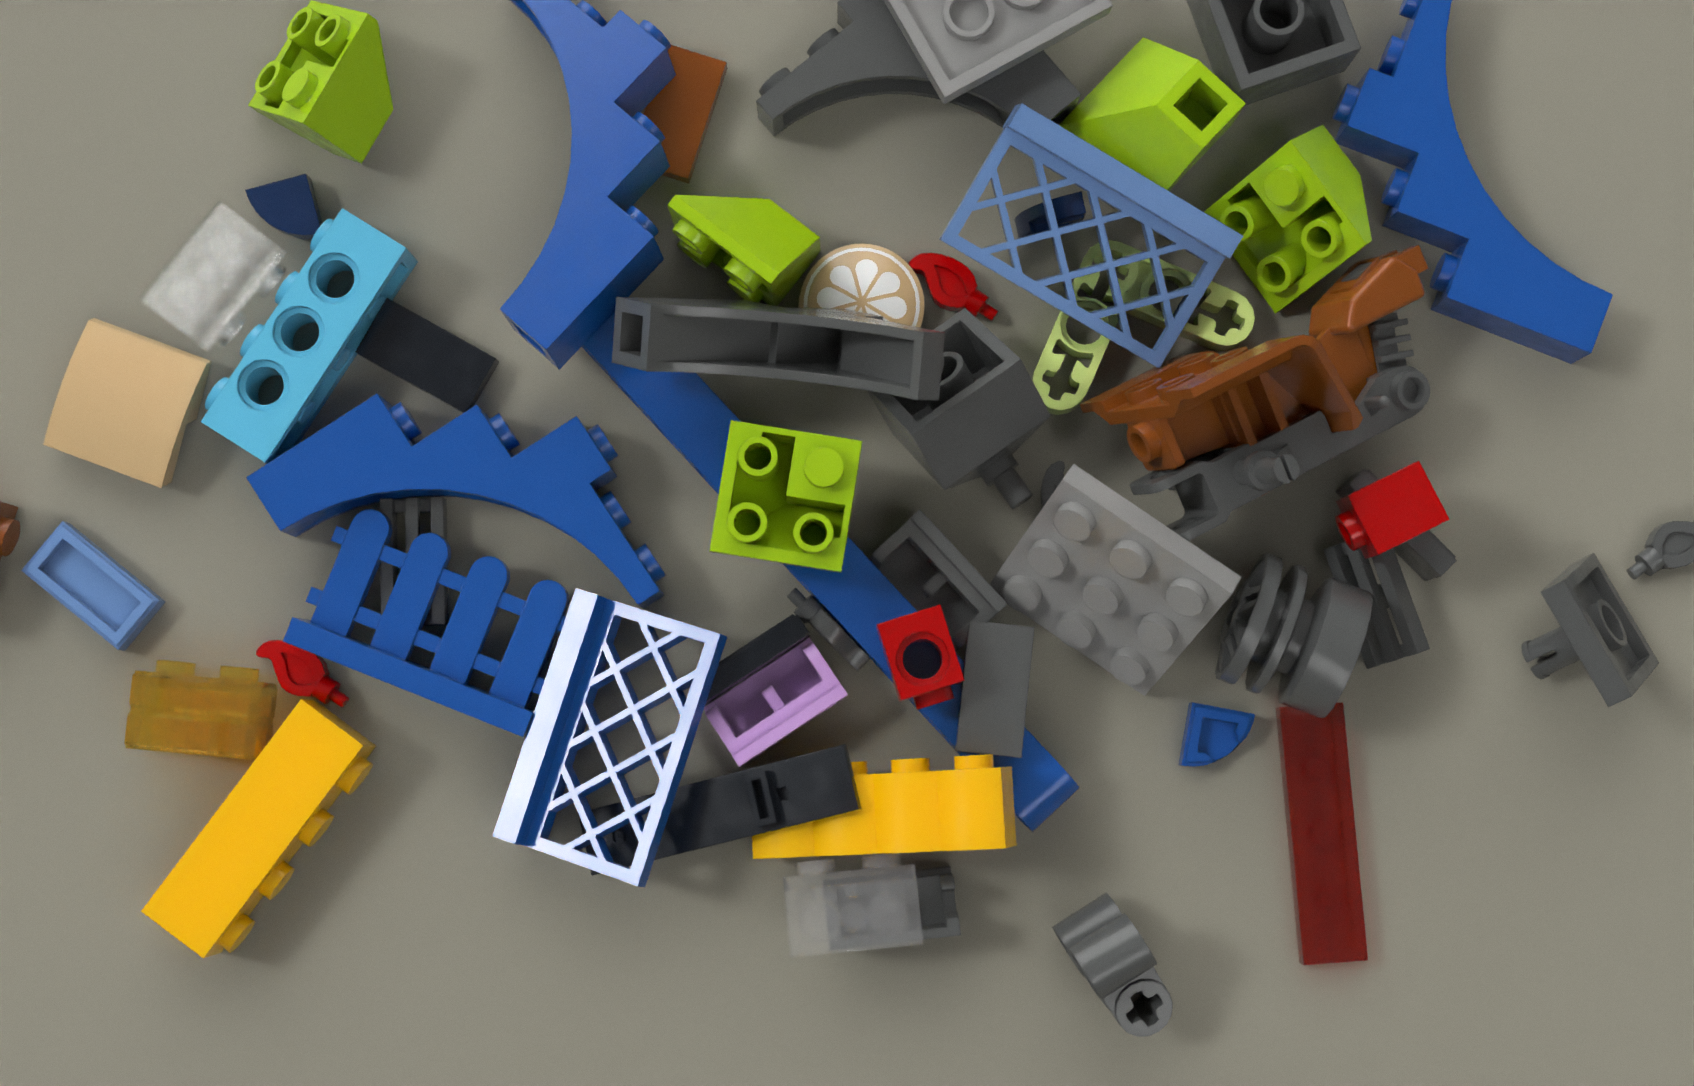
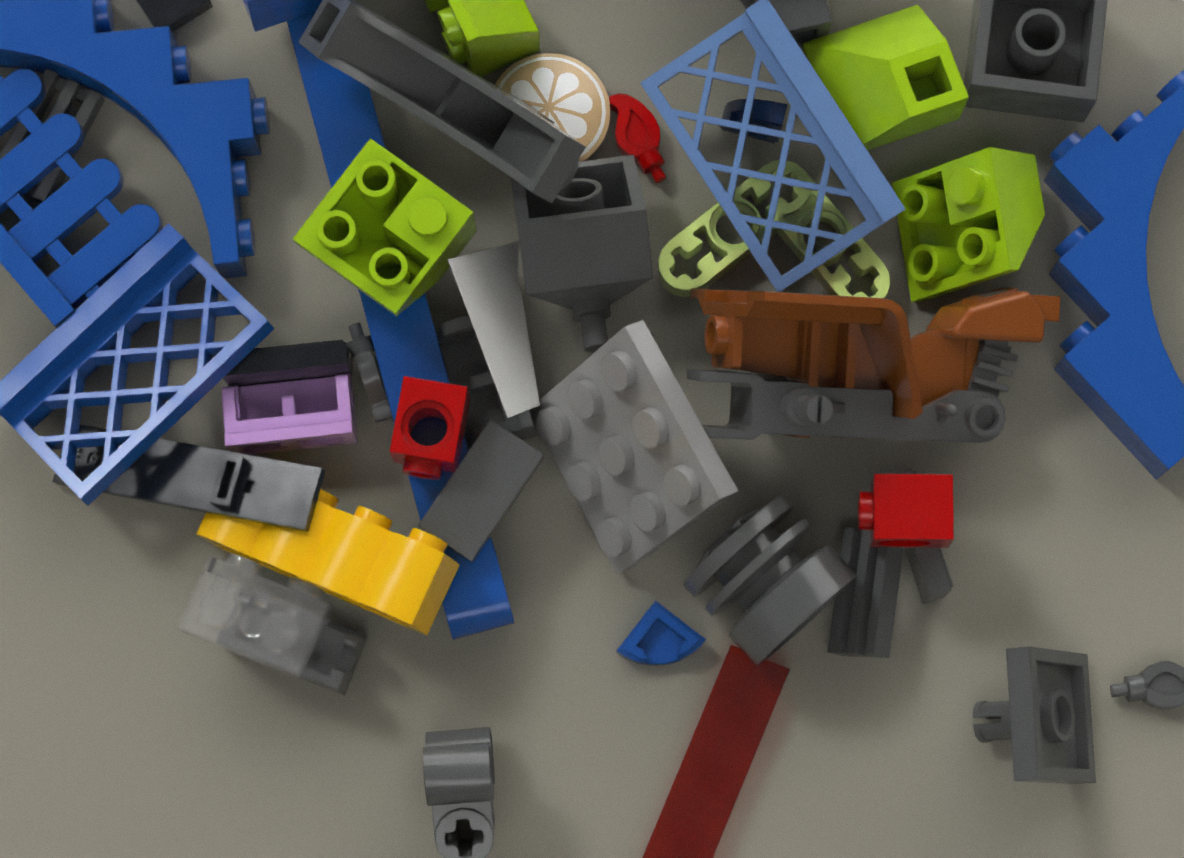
camera: 30 degrees right, 5 degrees down
(924, 521) = (499, 320): none -> white sticker

